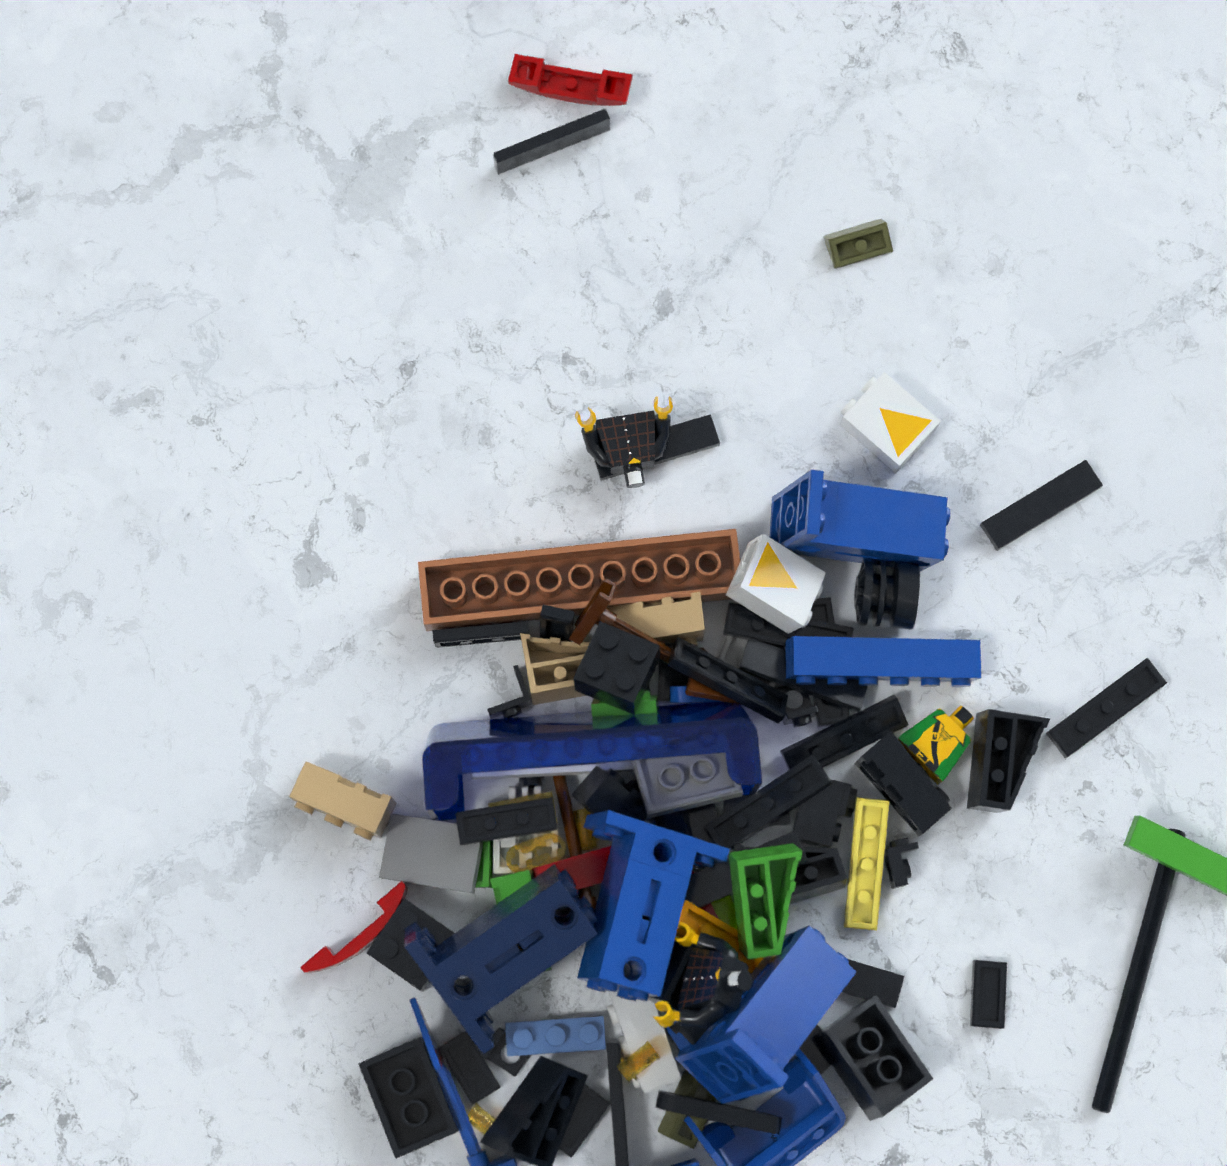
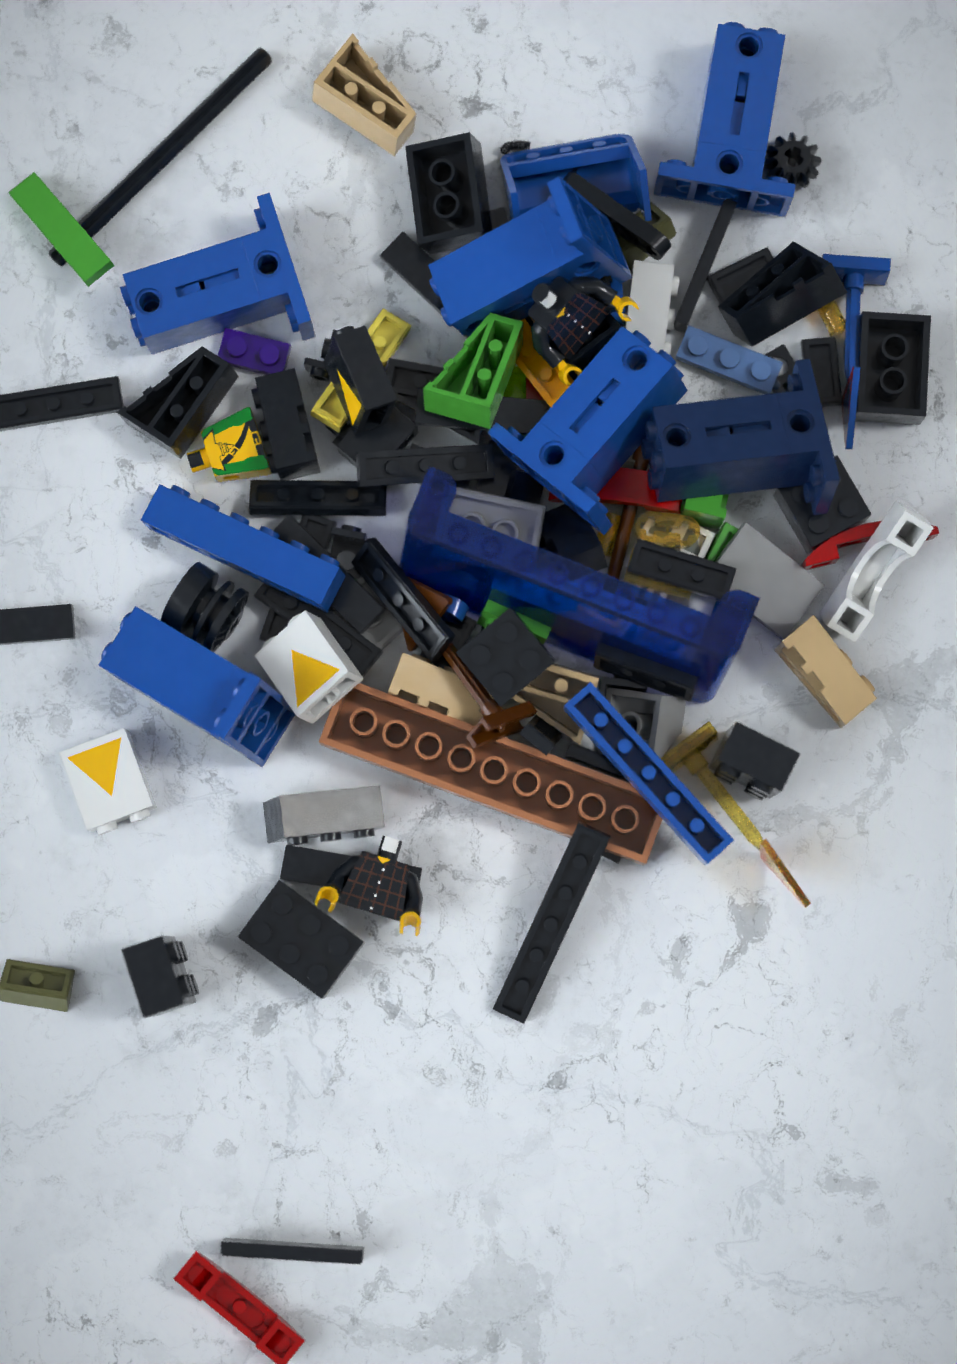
camera: 150 degrees left, 5 degrees up
(347, 871) = (855, 597): none -> white arch
(368, 686) = (753, 761): none -> black brick
(424, 674) = (689, 755): none -> clear yellow piece
(450, 628) = (648, 774): none -> blue brick
(472, 483) = (551, 922): none -> black tile
(477, 679) = (653, 716): none -> light grey slope
(495, 718) = (645, 672): none -> black tile
(638, 1061) = (667, 292): clear yellow pin -> none
(665, 369) = (301, 939): none -> black brick
(699, 478) = (324, 815): none -> wedge
(763, 284) = (160, 975): none -> black brick
(843, 1135) = (517, 144): none -> black leg
(862, 843) = (359, 379): none -> black brick
(964, 836) = (254, 352): none -> dark purple plate
(988, 994) = (311, 203): black tile -> none
(993, 1108) = (363, 98): none -> tan wedge
(1022, 873) = (218, 288): none -> blue brick

